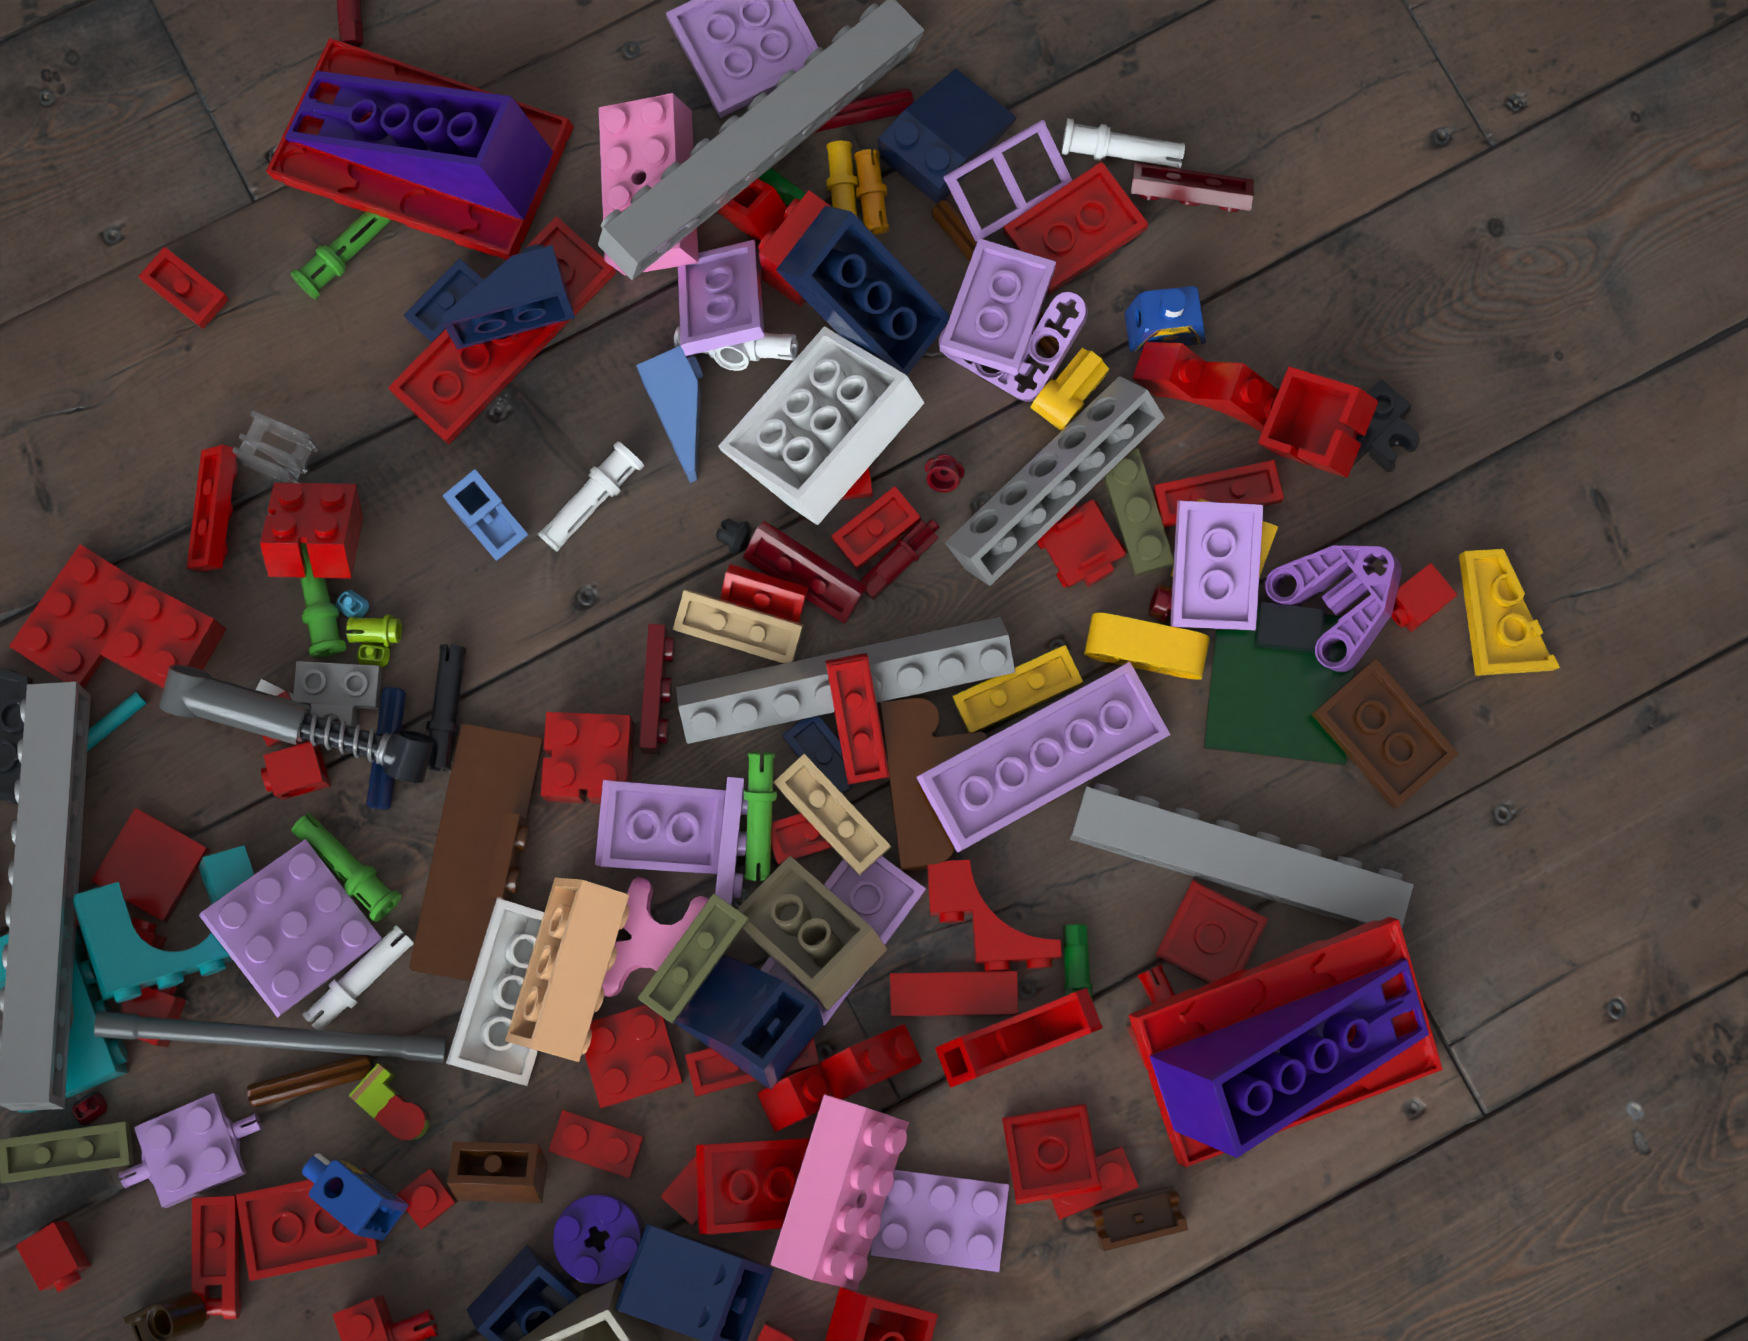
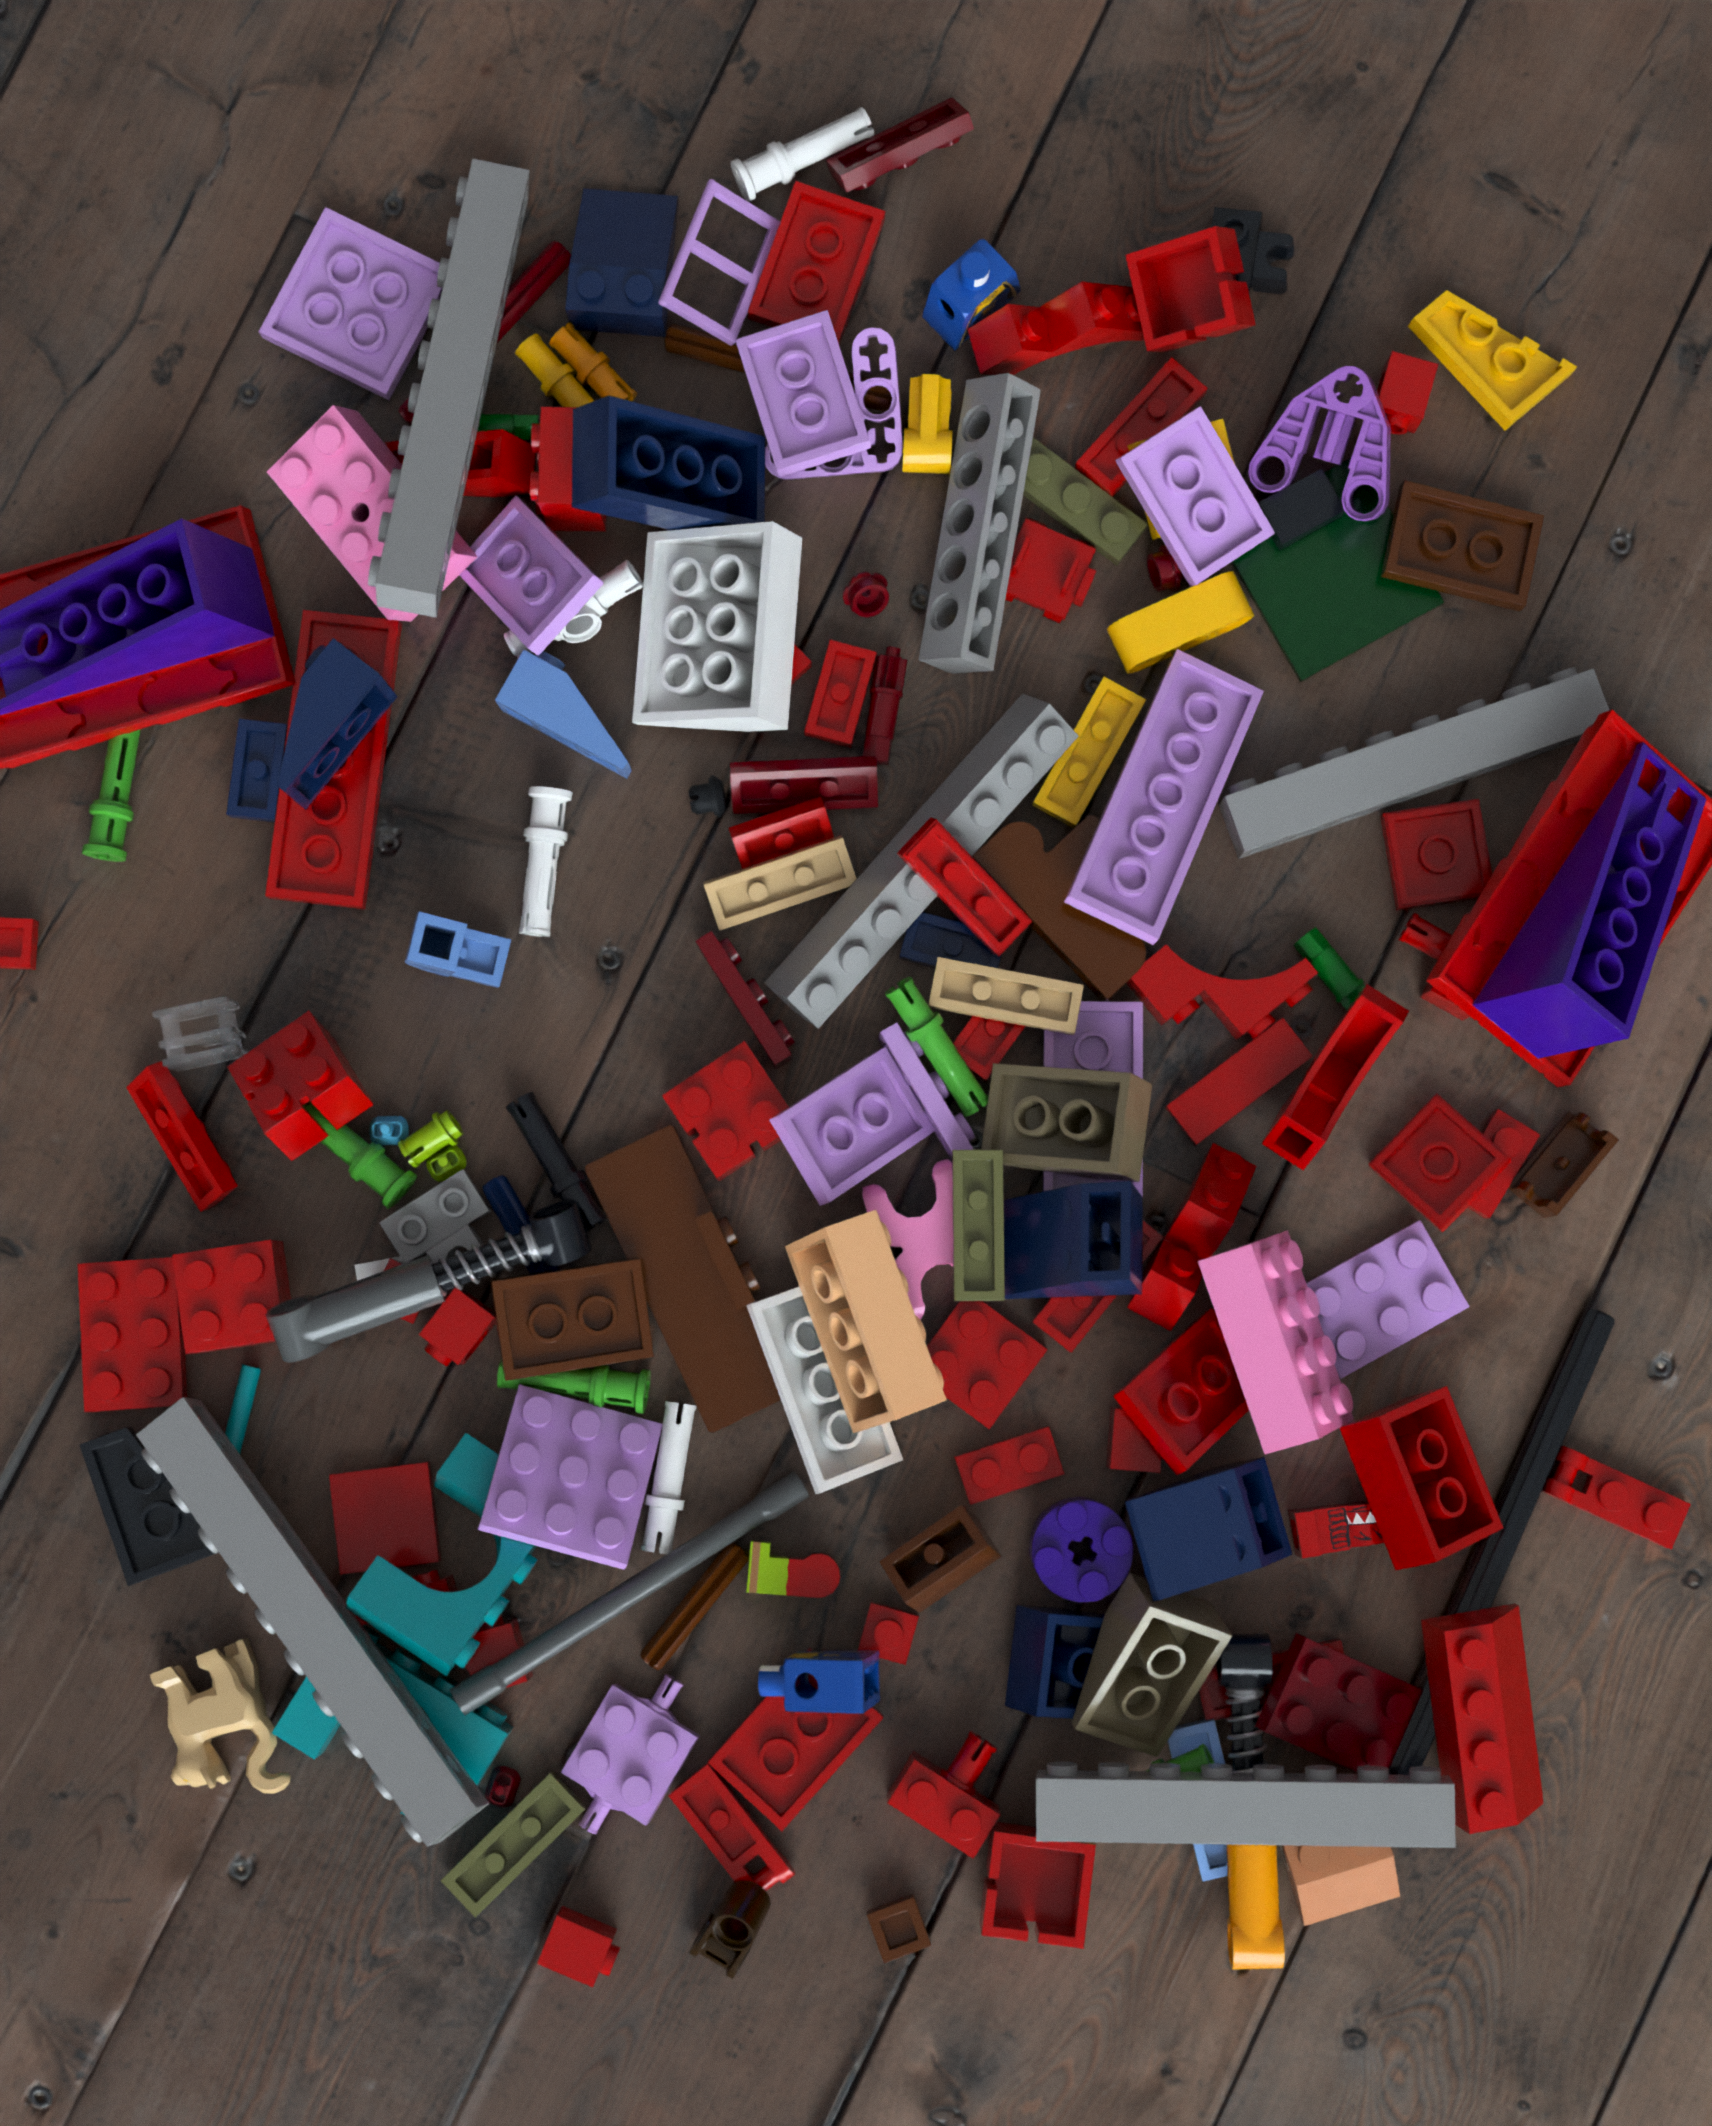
camera: 35 degrees left, 5 degrees up
(373, 820) = (572, 1318): none -> reddish brown plate

